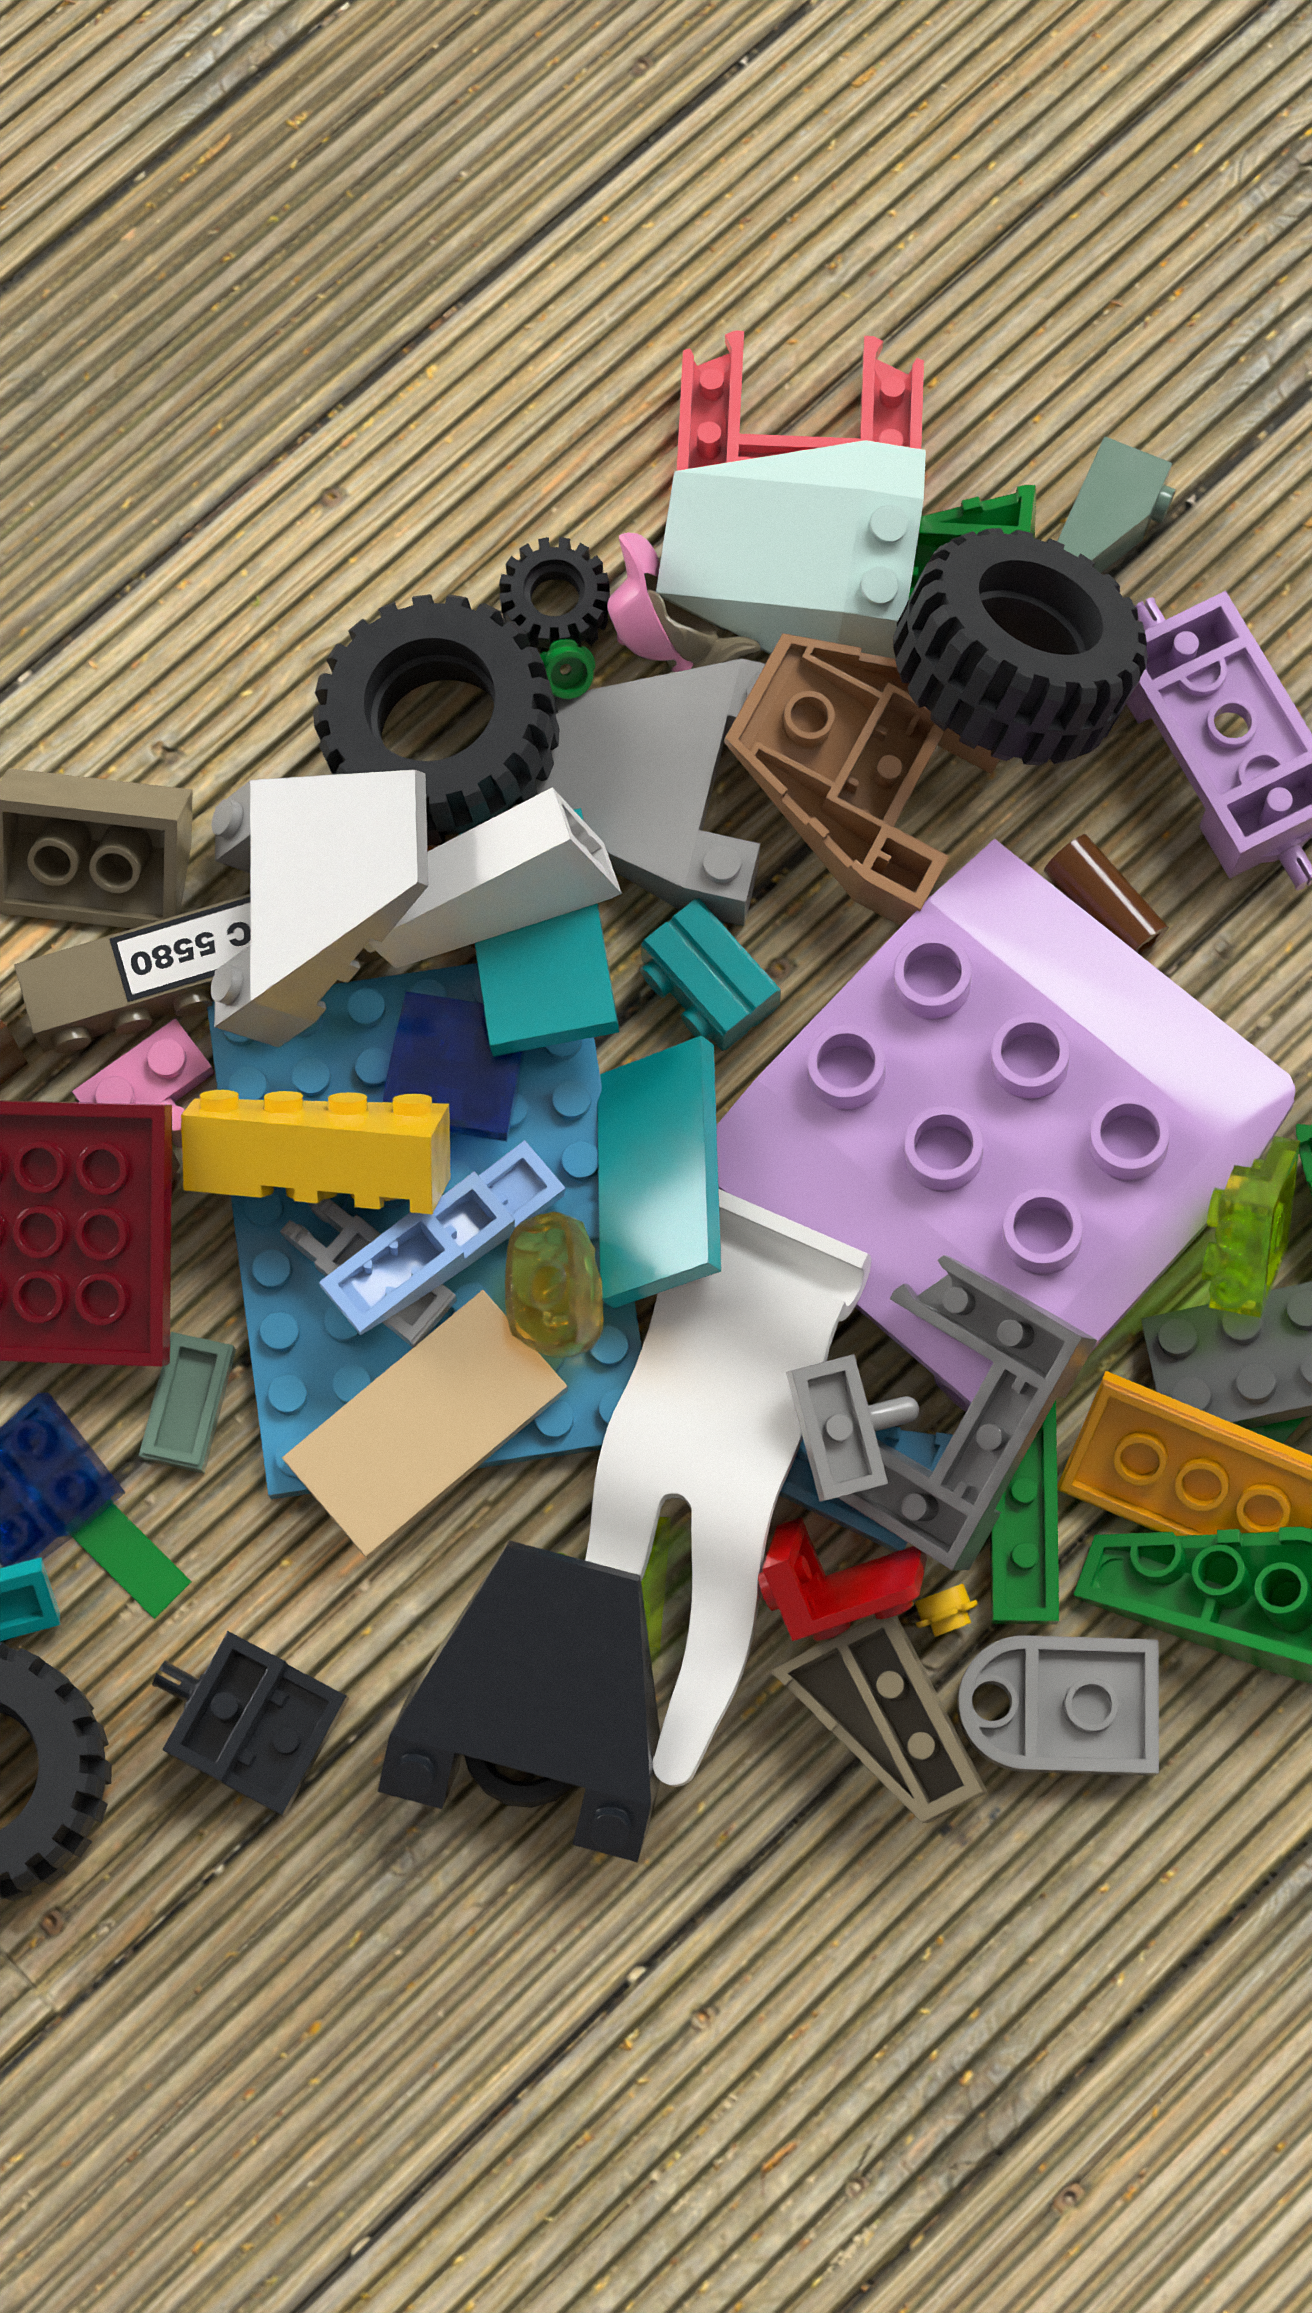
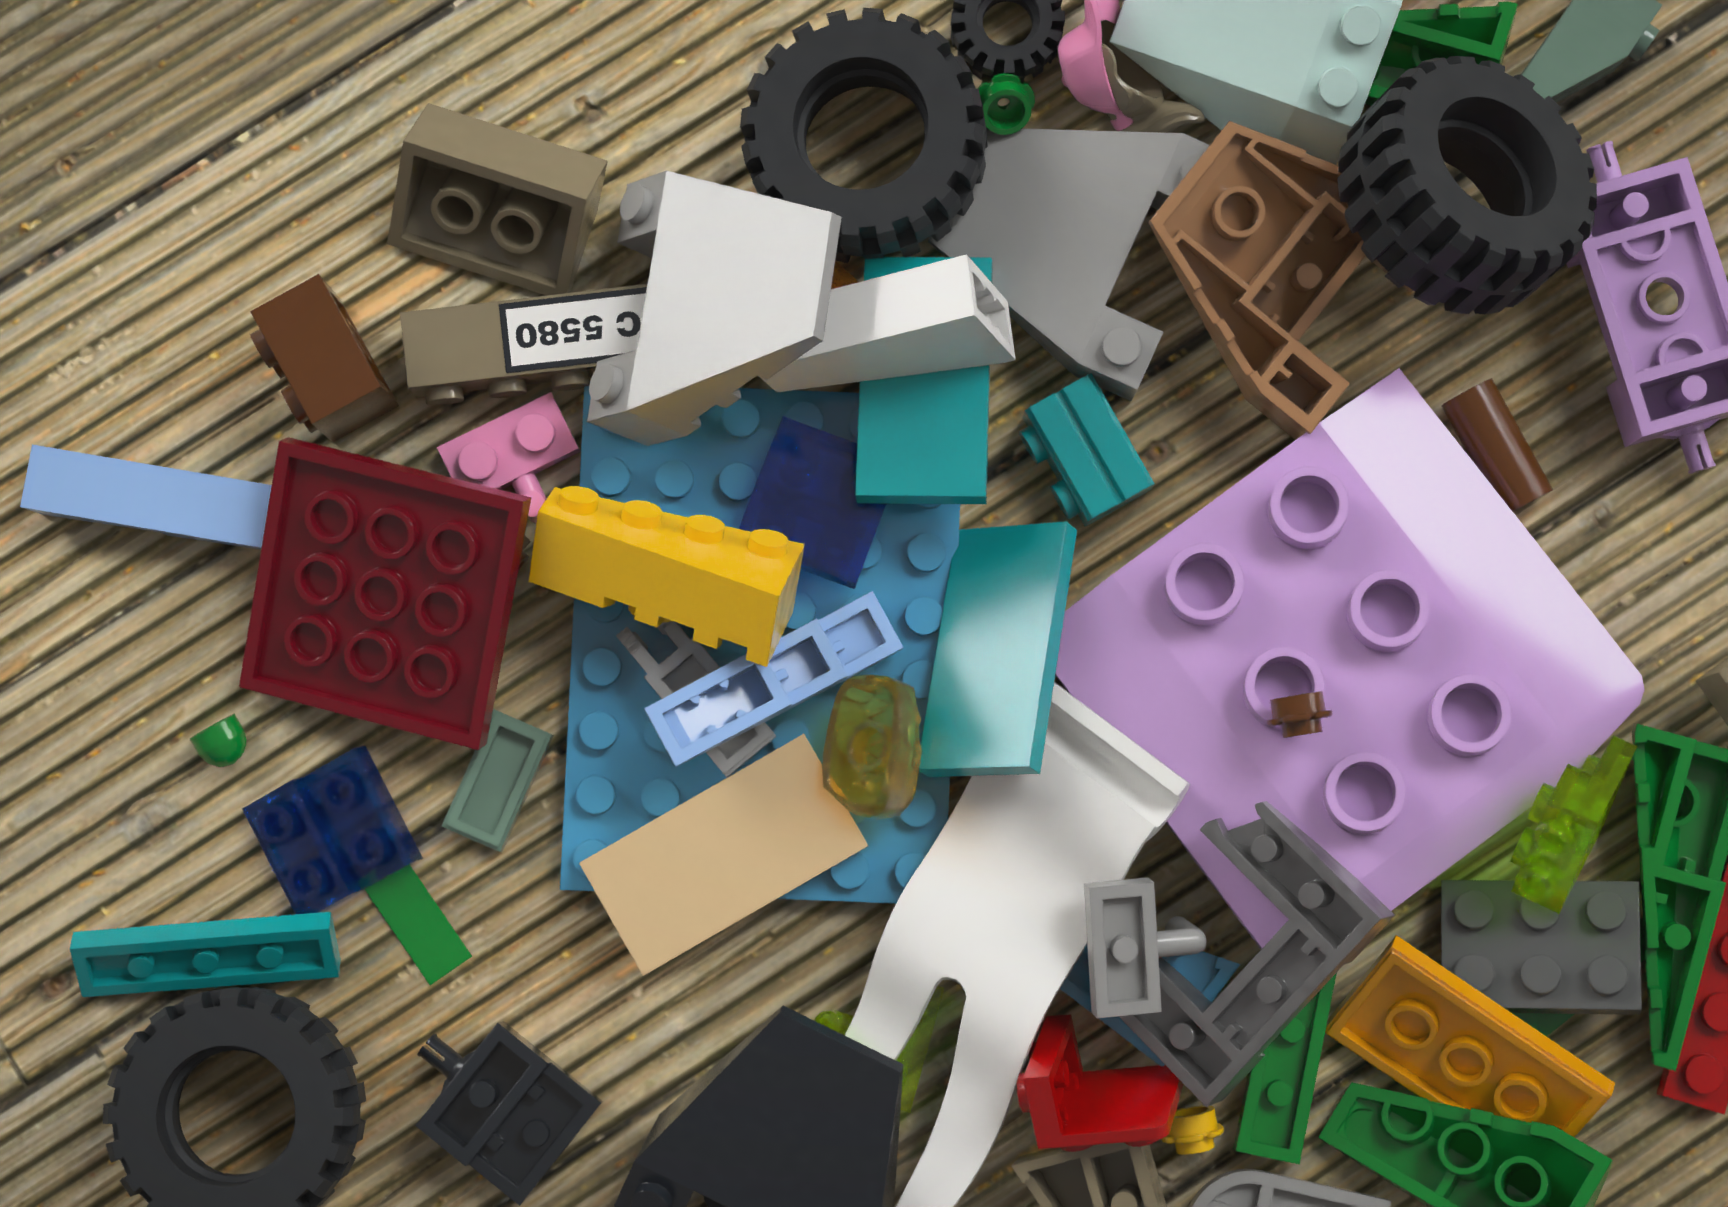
camera: 10 degrees right, 10 degrees up
(962, 1161) = (1299, 714): none -> reddish brown plate

